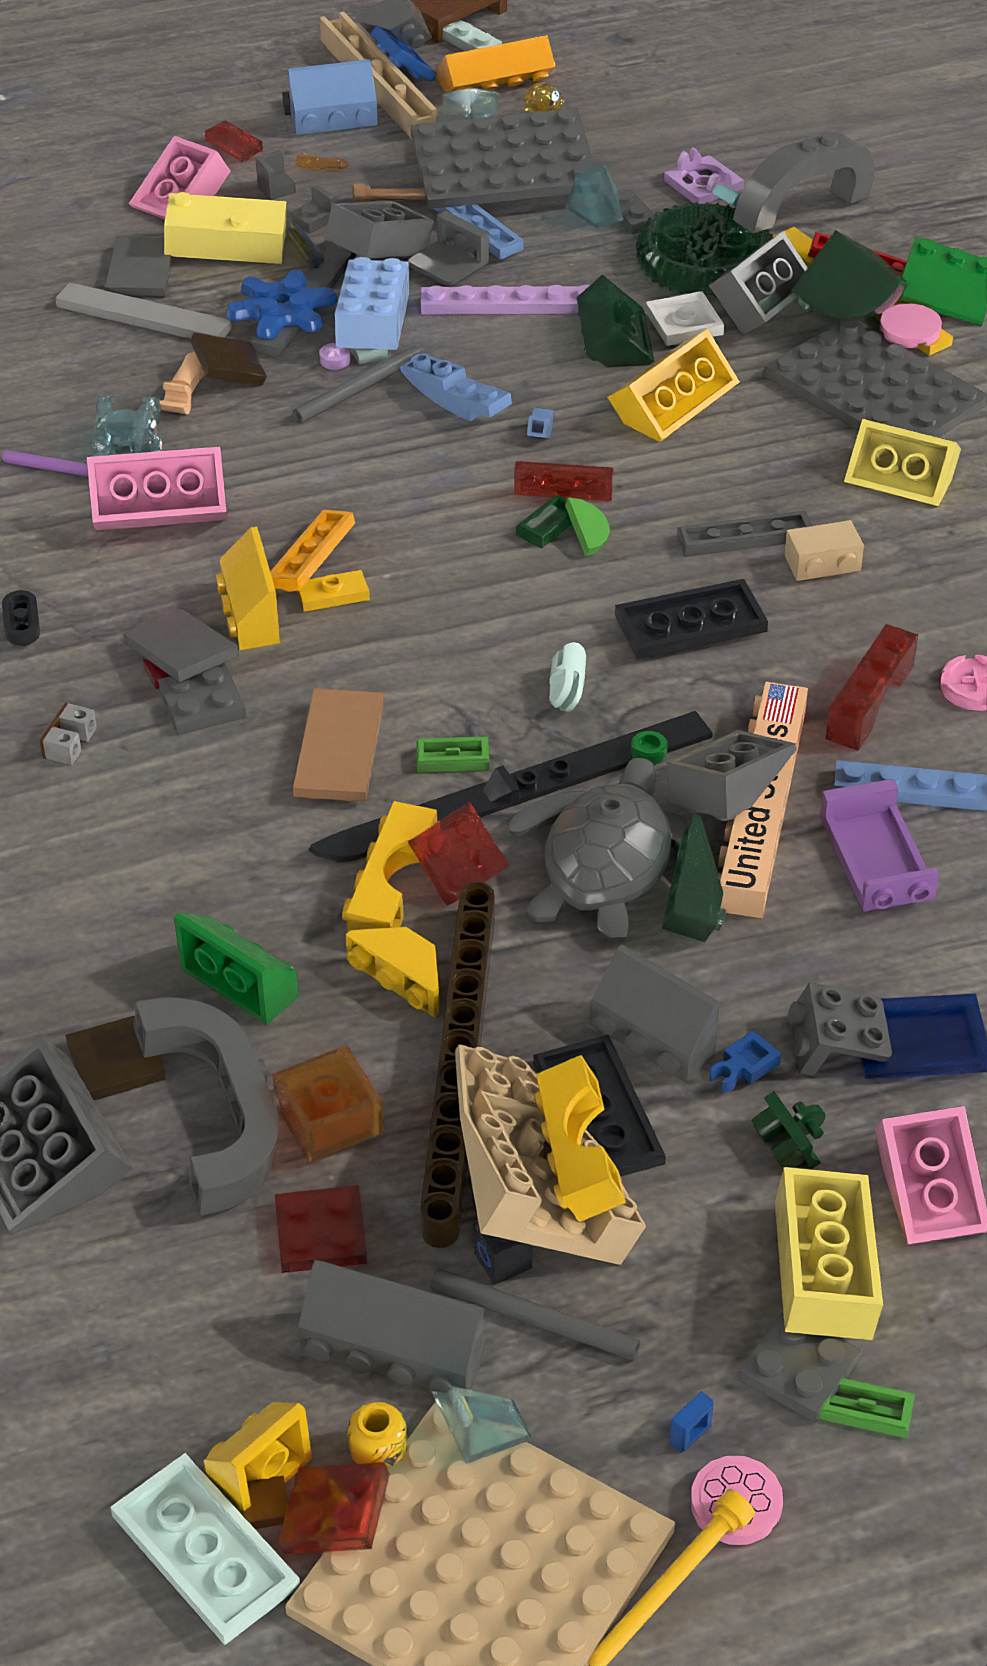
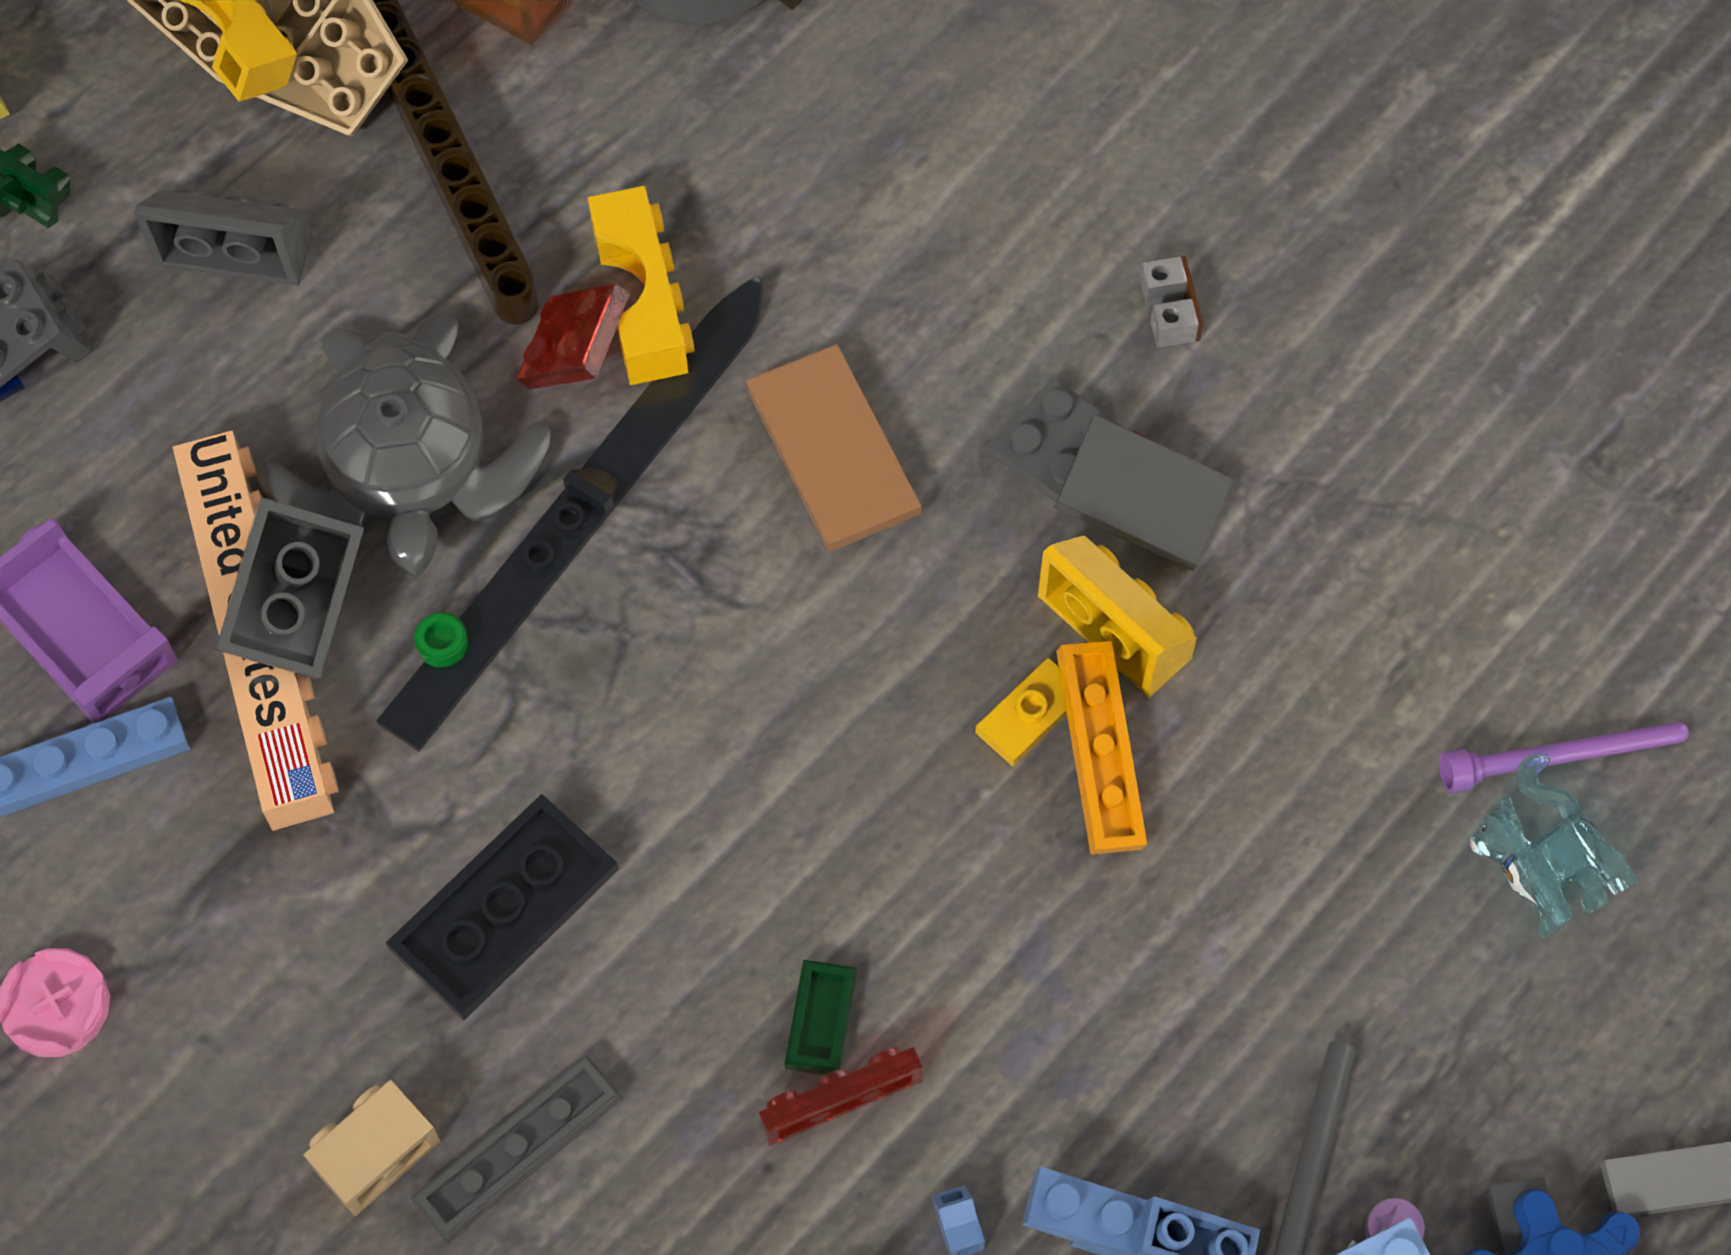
camera: 150 degrees right, 20 degrees up
(21, 617) = (1388, 444): black plate -> none
(156, 488) = (1371, 707): bright pink slope -> none
(179, 390) = (1545, 974): light nougat piece -> none
(228, 359) = (1536, 1099): dark brown tile -> none
(234, 966) = (725, 74): green slope -> none
(399, 962) = (552, 180): yellow slope -> none
(452, 754) = (700, 530): bright green tile -> none
(567, 676) = (610, 699): light aqua arm -> none
(589, 525) = (747, 1022): bright green tile -> none
(623, 1125) = (250, 142): black tile -> none
(695, 888) = (261, 407): clear green slope -> none
(746, 1058) = (107, 253): blue plate -> none
(858, 702) = (179, 920): clear red arch -> none

